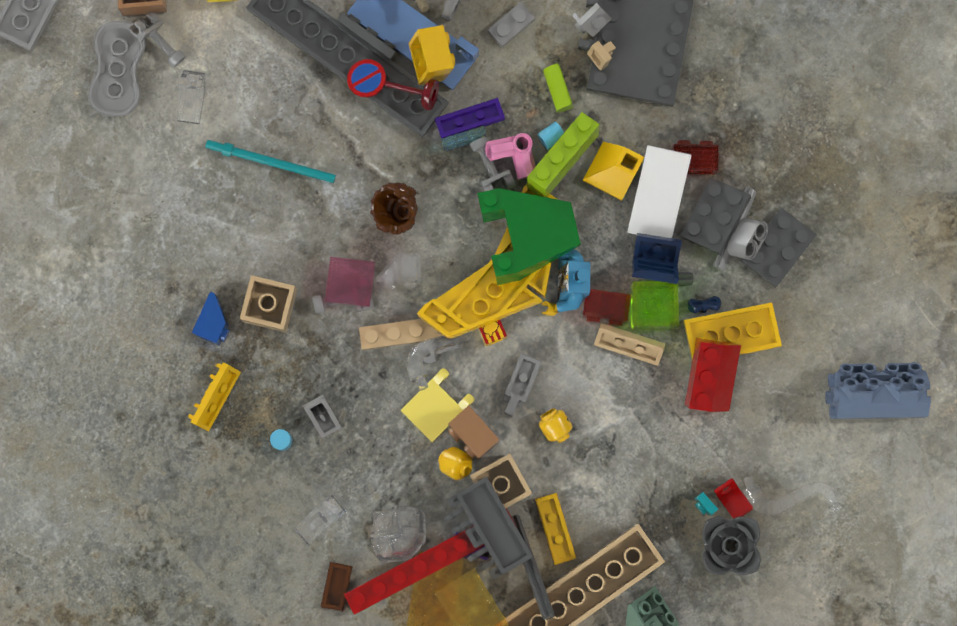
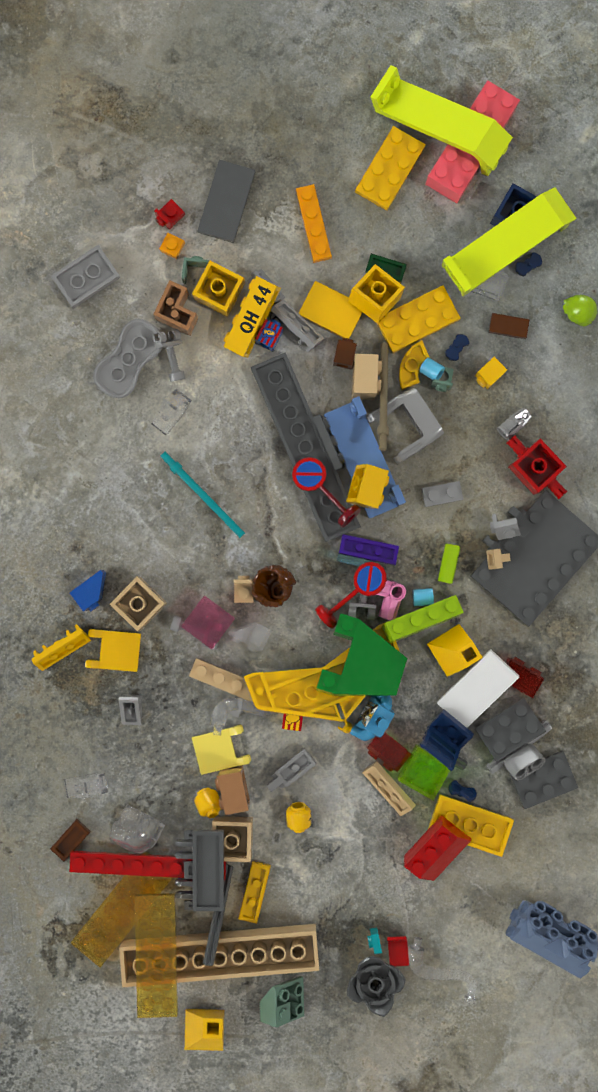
camera: 35 degrees right, 5 degrees up
(274, 366) = (117, 650): none -> yellow flag
(281, 440) = (90, 709): medium azure piece -> none
(366, 231) = (243, 590): none -> tan bracket
(486, 147) = (368, 581): none -> piece

